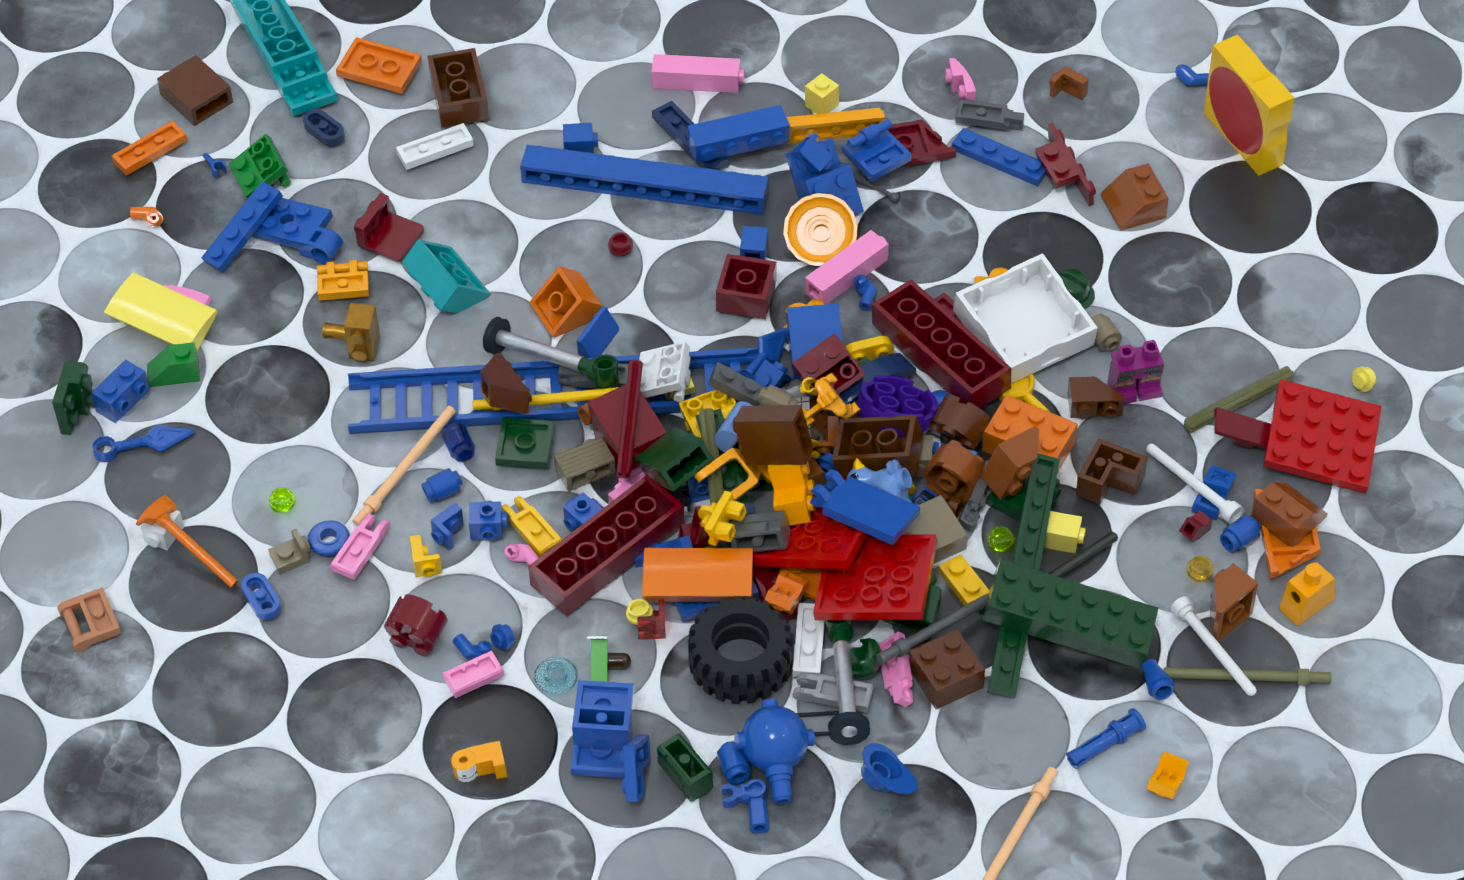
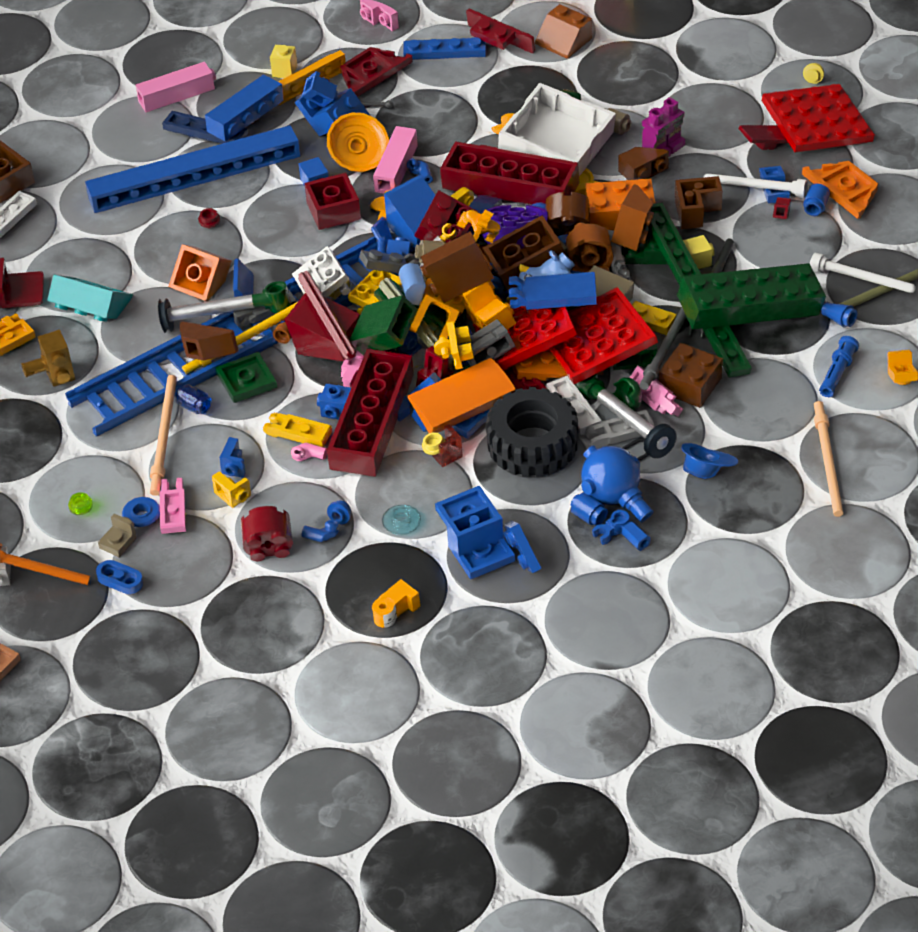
camera: 30 degrees left, 5 degrees down
(442, 485) = (204, 434): blue brick -> none
(473, 674) = (337, 548): bright pink plate -> none
(487, 520) = (262, 439): blue brick -> none
(579, 137) = (119, 161): blue brick -> none
(584, 463) = (305, 369): dark tan brick -> none
(602, 660) = (429, 490): bright green piece -> none
(685, 767) = (557, 528): dark green brick -> none
(787, 591) = (536, 375): orange brick -> none
(876, 151) = (358, 75): blue plate -> none
(988, 115) = (415, 26): dark grey hinge -> none
(1000, 533) = (653, 278): clear neon green plate -> none
(1200, 568) = (807, 233): clear yellow plate -> none
(1231, 600) = (849, 237): dark orange slope -> none
(1238, 398) = (741, 119): olive axle -> none
(1286, 512) = (840, 170): dark orange slope -> none
(1307, 593) = (897, 201): light orange torso -> none

